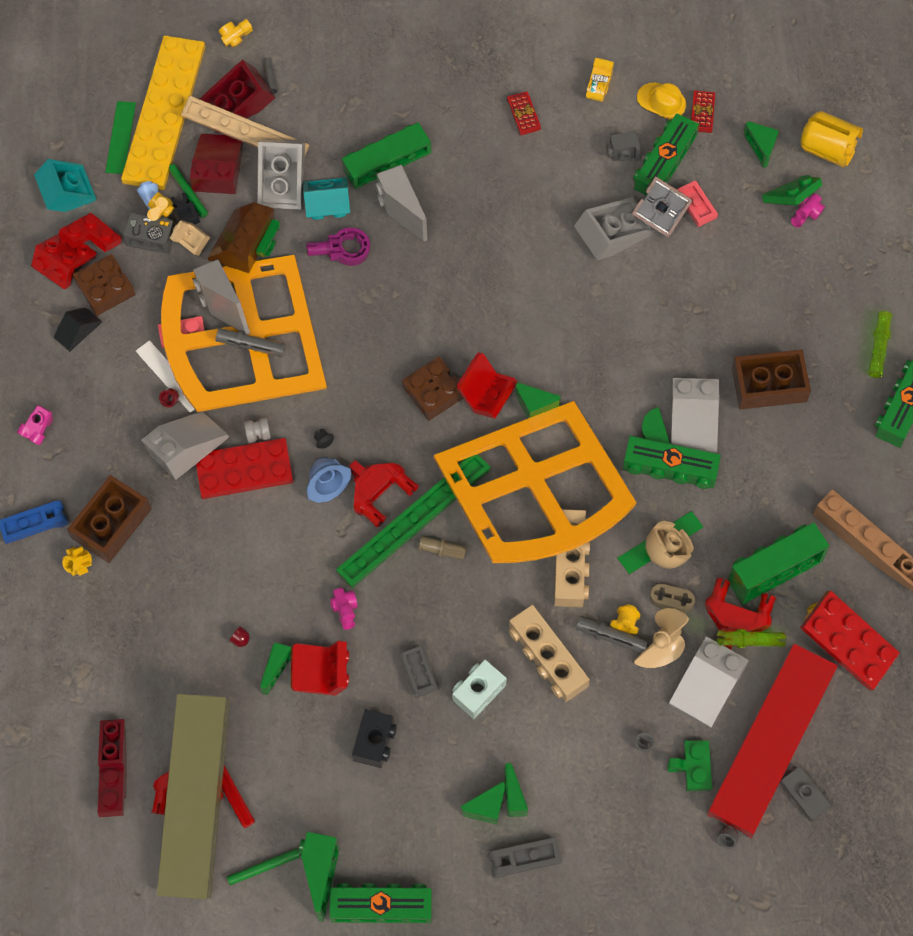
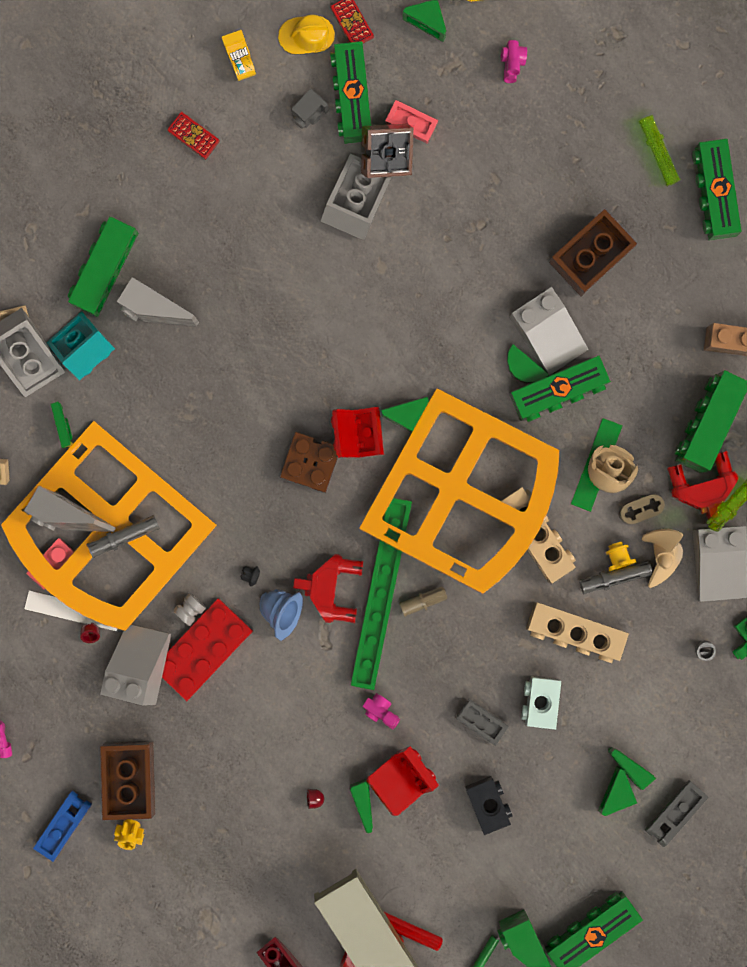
camera: 40 degrees left, 20 degrees up
(242, 236) = (36, 440): reddish brown slope -> none
(335, 251) = (118, 396): magenta pin -> none
(793, 192) = (489, 51): green wing -> none

